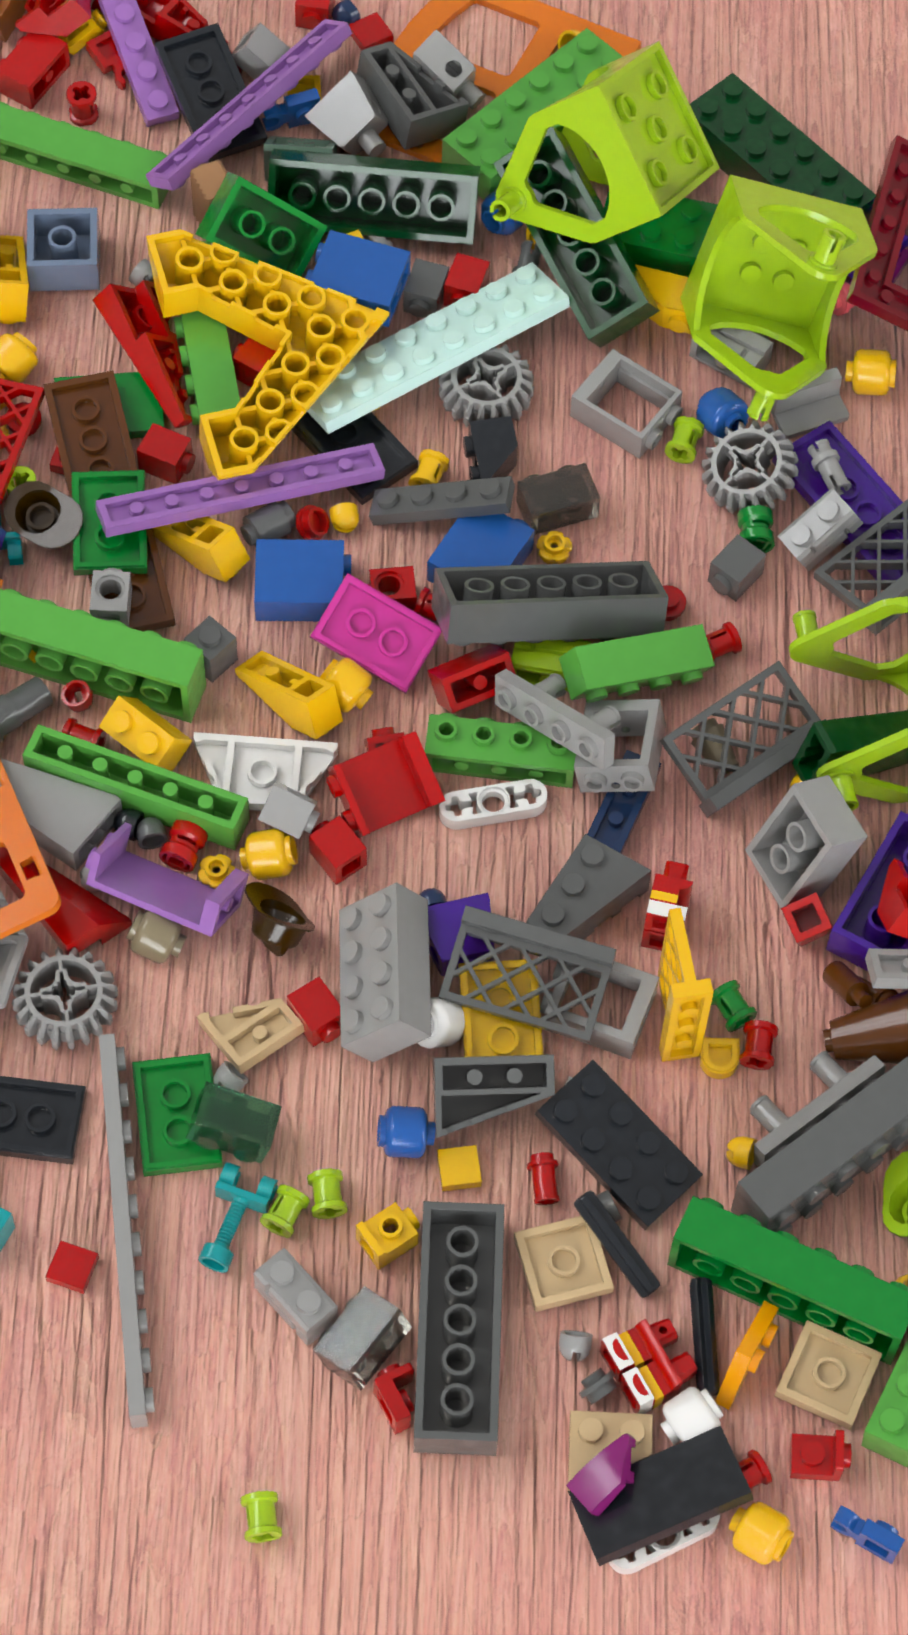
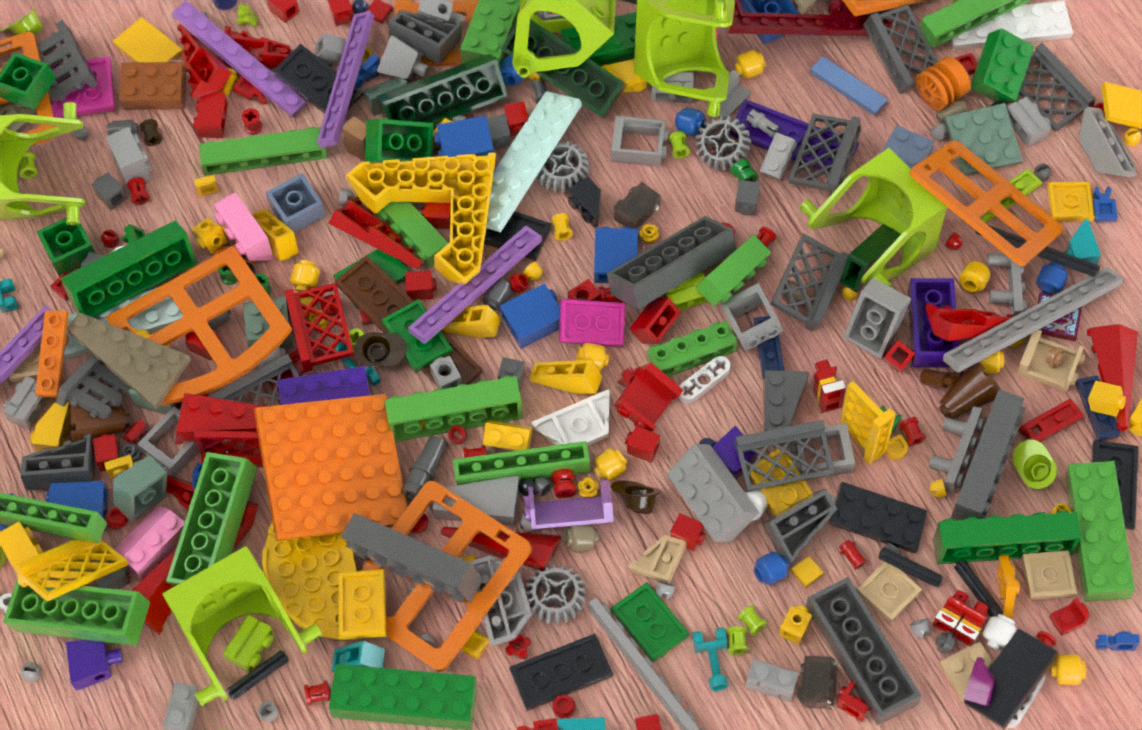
camera: 25 degrees left, 0 degrees up
(233, 1123) = (684, 610): clear green brick -> none
(289, 811) = (609, 436): light grey brick -> none
(442, 500) = (581, 237): dark grey plate -> none
(541, 710) = (716, 319): light grey plate -> none

